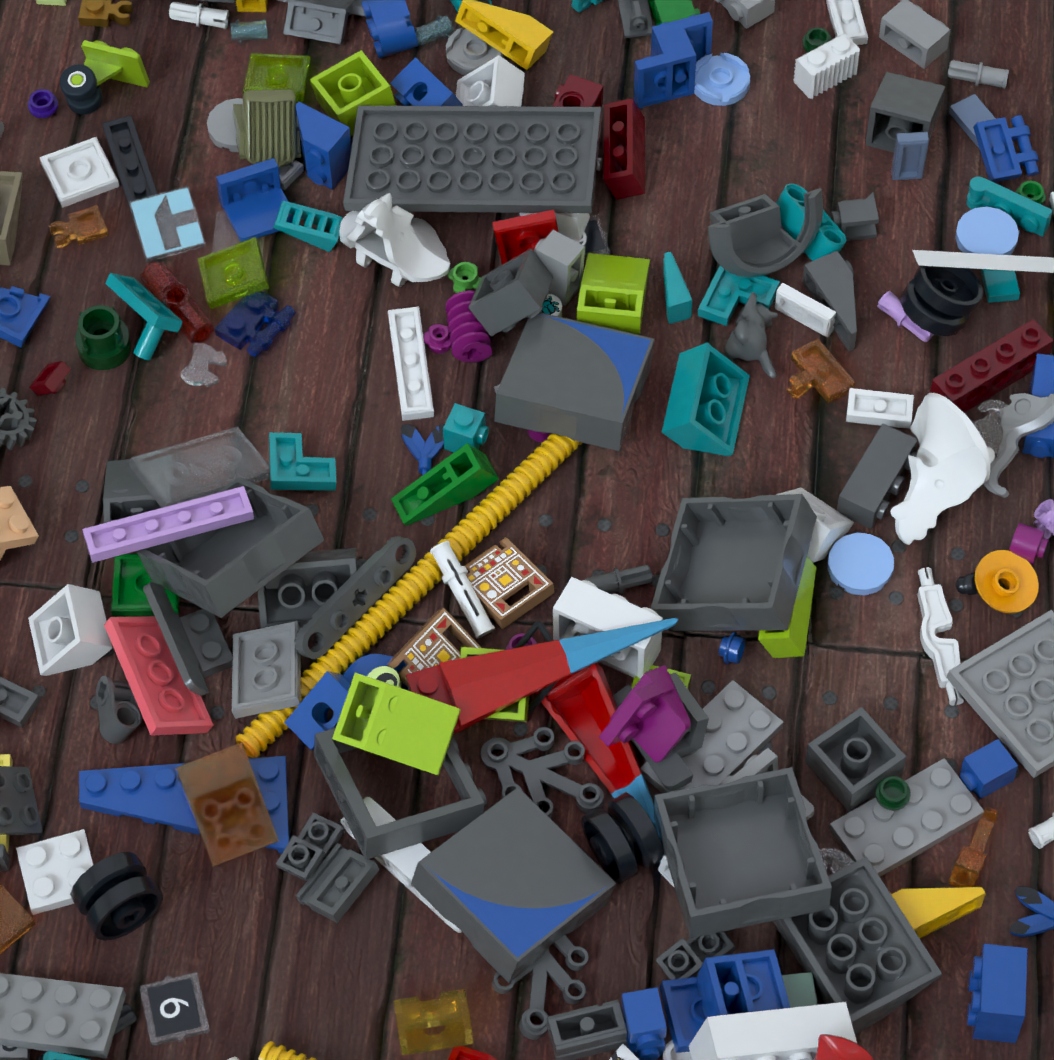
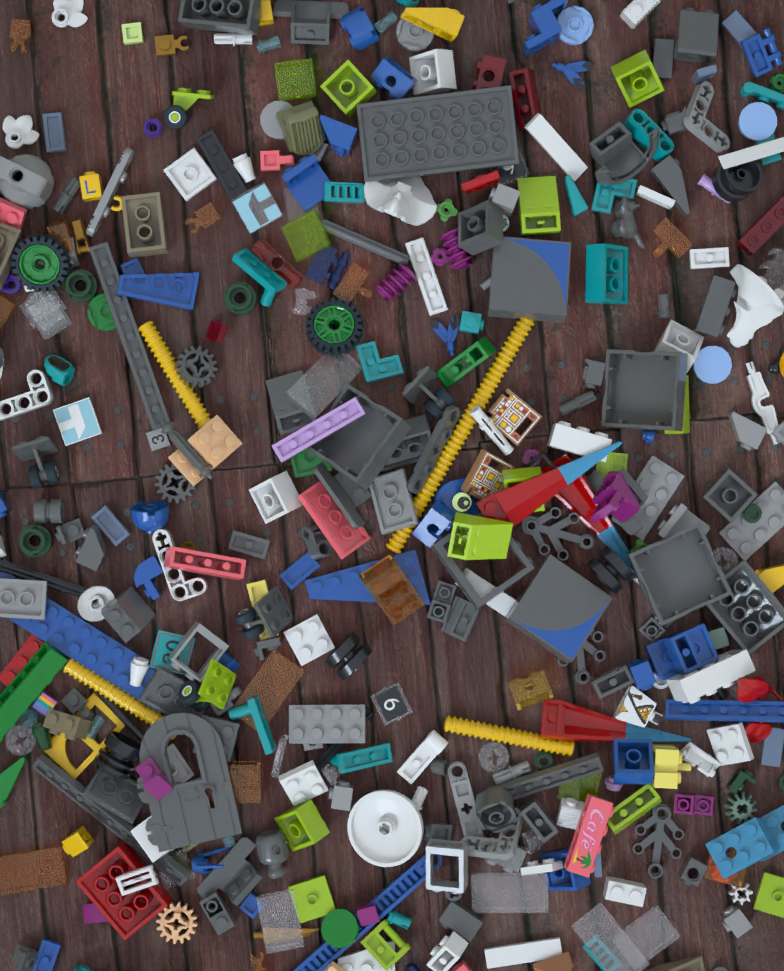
camera: 10 degrees left, 30 degrees up
(74, 756) = (299, 570): none -> blue tile
(164, 169) = (244, 167): none -> white cone
(207, 167) = (272, 160): none -> coral plate
(240, 398) = (334, 313): none -> wheel
(287, 352) = (352, 284): none -> clear orange plate
(326, 300) = (365, 242): none -> dark grey axle
(356, 354) = (395, 282): none -> magenta piece
(358, 503) = (420, 385): none -> dark grey plate
(653, 538) = (593, 373): none -> dark grey window
(657, 210) = (556, 146): none -> white tile
(706, 133) = (571, 70): none -> blue piece
(791, 471) = (663, 306): none -> dark grey pin
(805, 150) = (637, 78): none -> lime slope
(849, 139) = (663, 57): none -> dark grey tile
(894, 219) = (717, 139): none -> light grey beam
(904, 668) = (746, 431): none -> light grey slope

